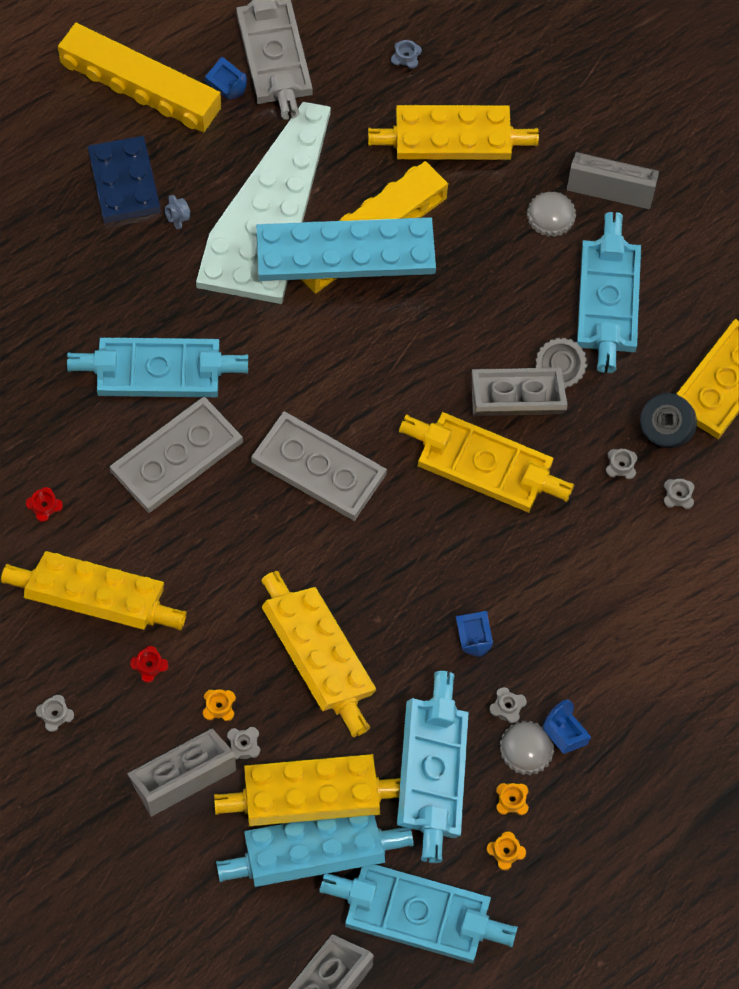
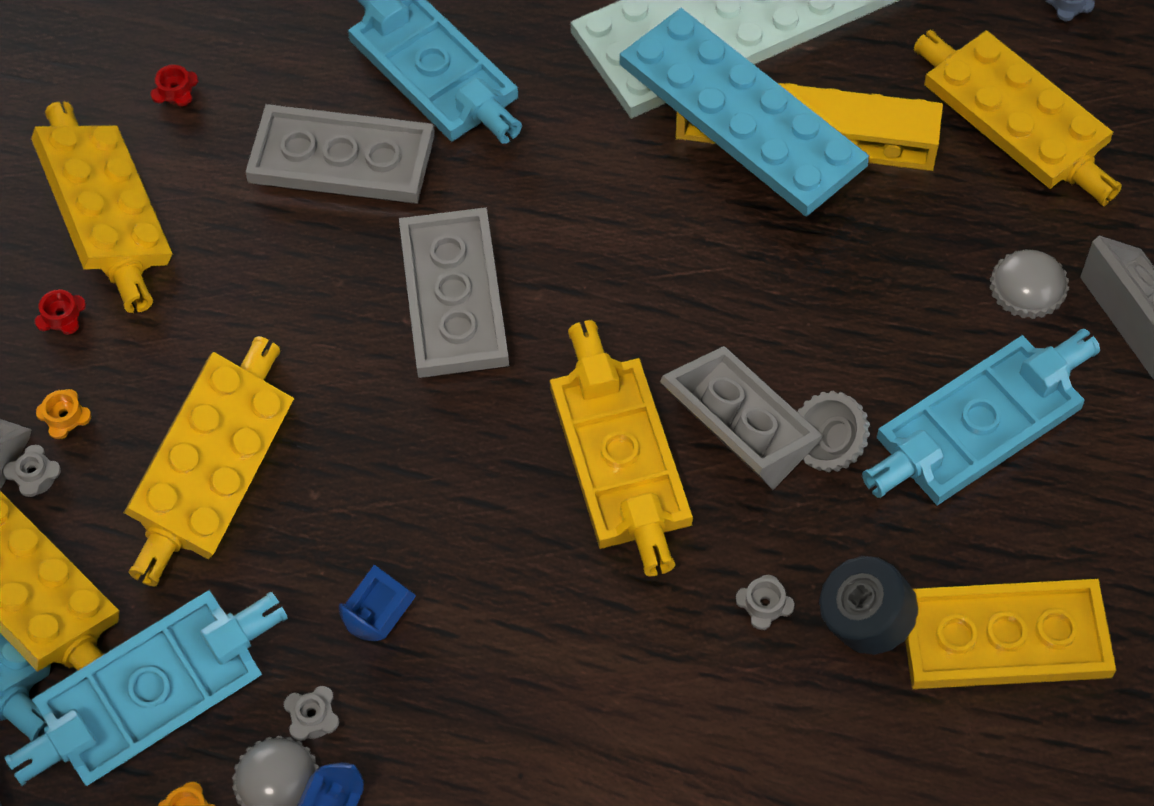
camera: 55 degrees right, 5 degrees down
(679, 485) = (790, 684): light grey plate -> none

